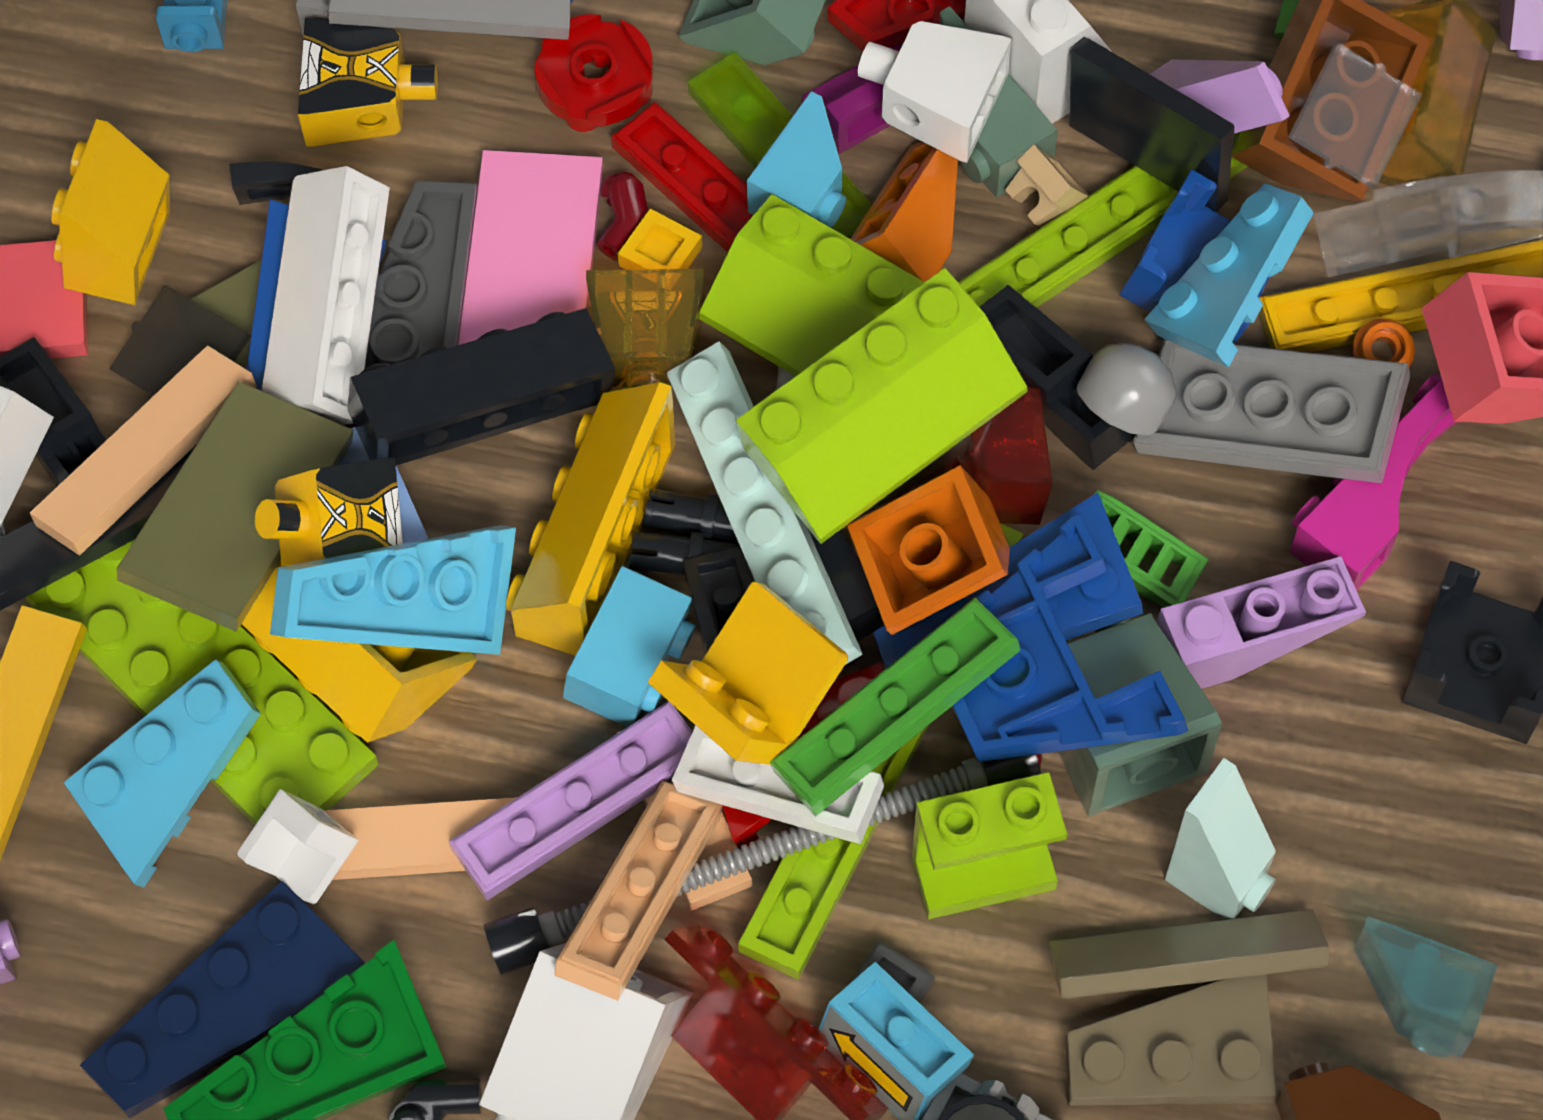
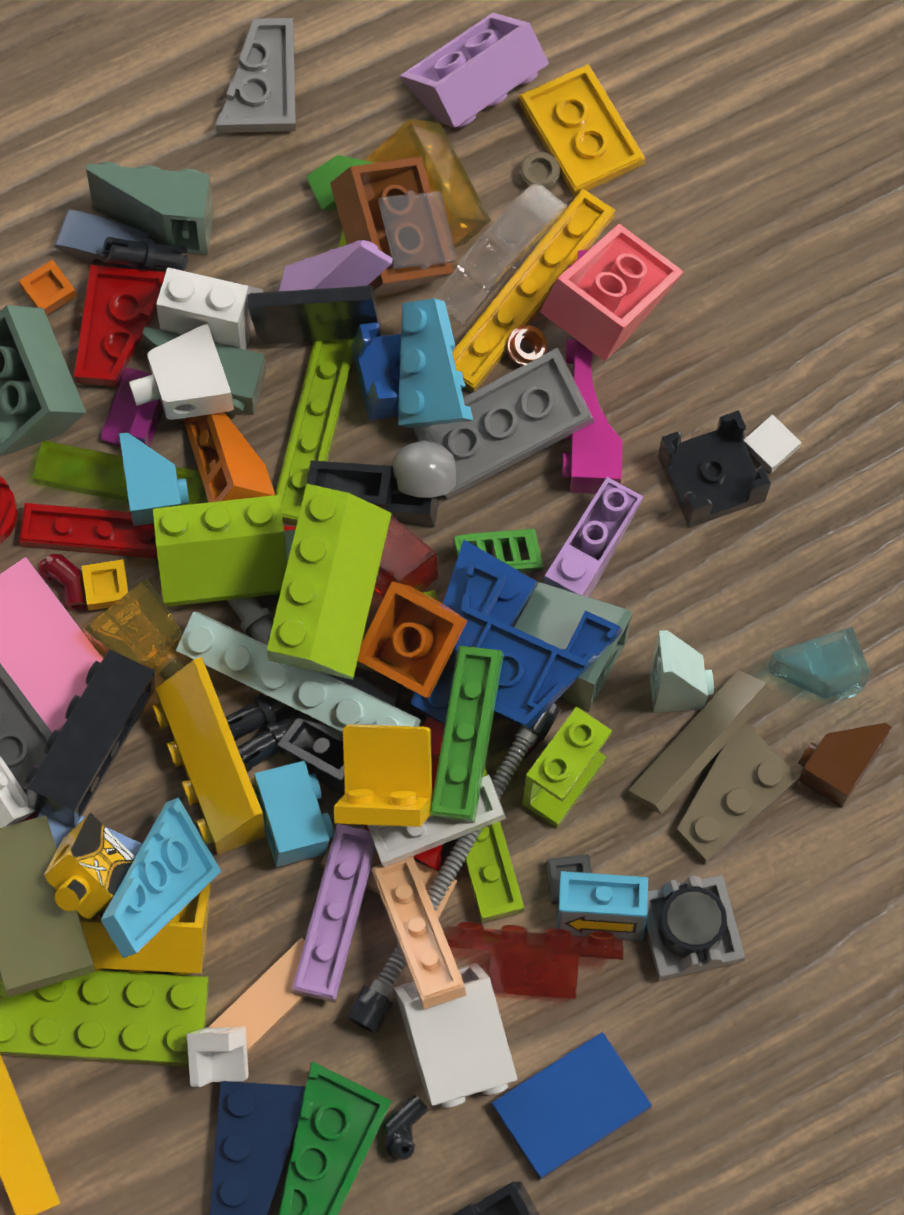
camera: 45 degrees left, 5 degrees up
(156, 770) = (104, 1077): medium azure wing -> none
(1054, 183) = (279, 383): tan tile -> none

